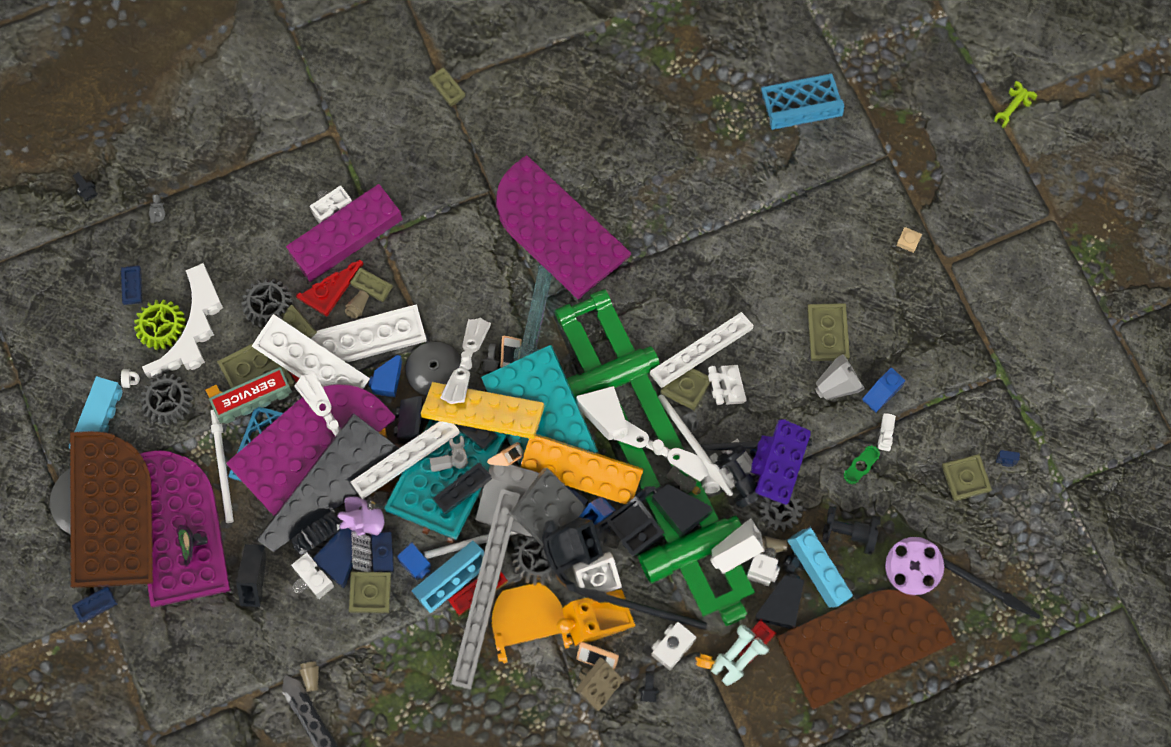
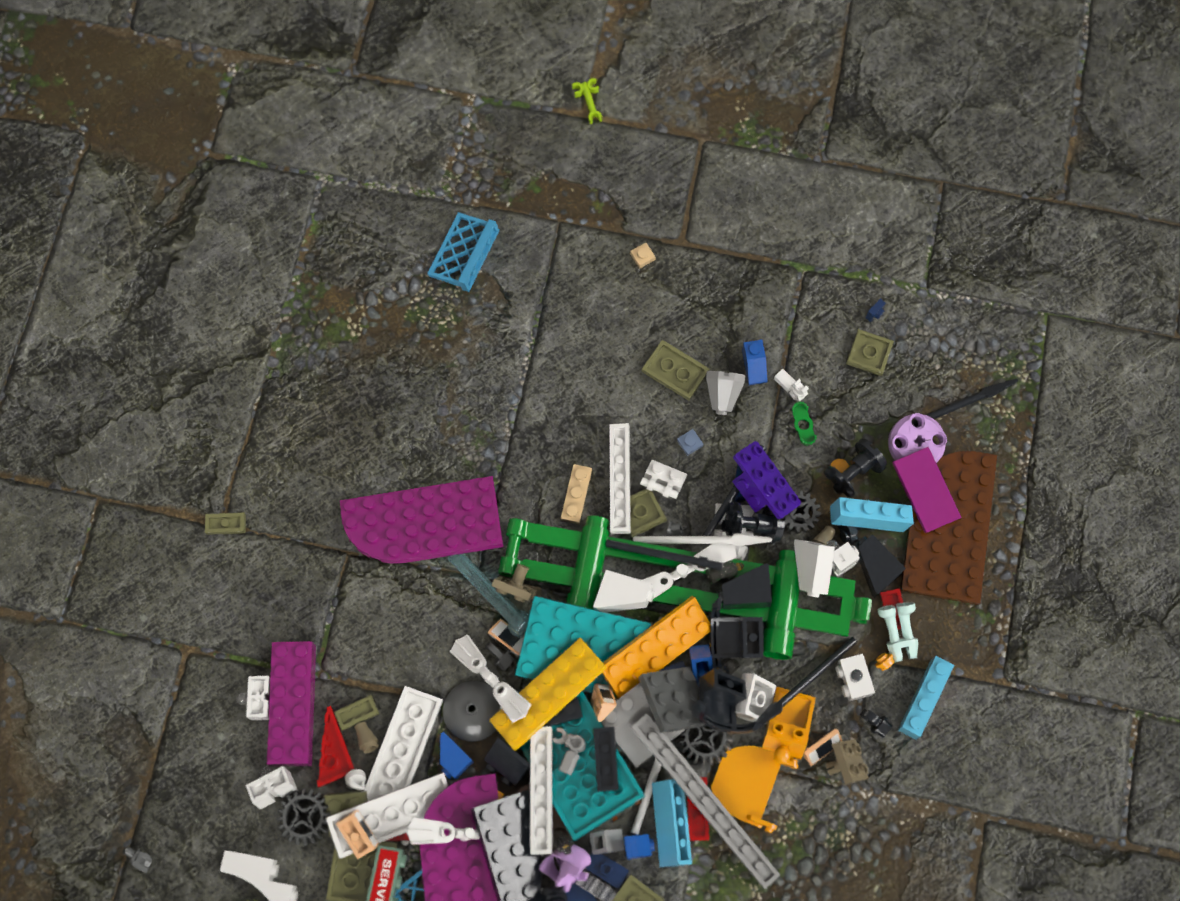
camera: 55 degrees left, 0 degrees up
(272, 261) = (271, 785): none -> white piece
(278, 345) = (357, 834): none -> light nougat slope
(320, 319) = (356, 779): none -> white tile
(402, 535) = (607, 841): none -> light grey brick
(552, 329) = (515, 586): none -> dark tan plate
(665, 327) = (576, 494): none -> tan plate
(674, 455) = (701, 562): none -> black bar
(698, 713) = (925, 697): none -> medium azure brick
(775, 385) = (690, 442): none -> sand blue plate
(845, 516) = (840, 465): none -> light orange plate
(876, 599) = (926, 490): none -> magenta tile

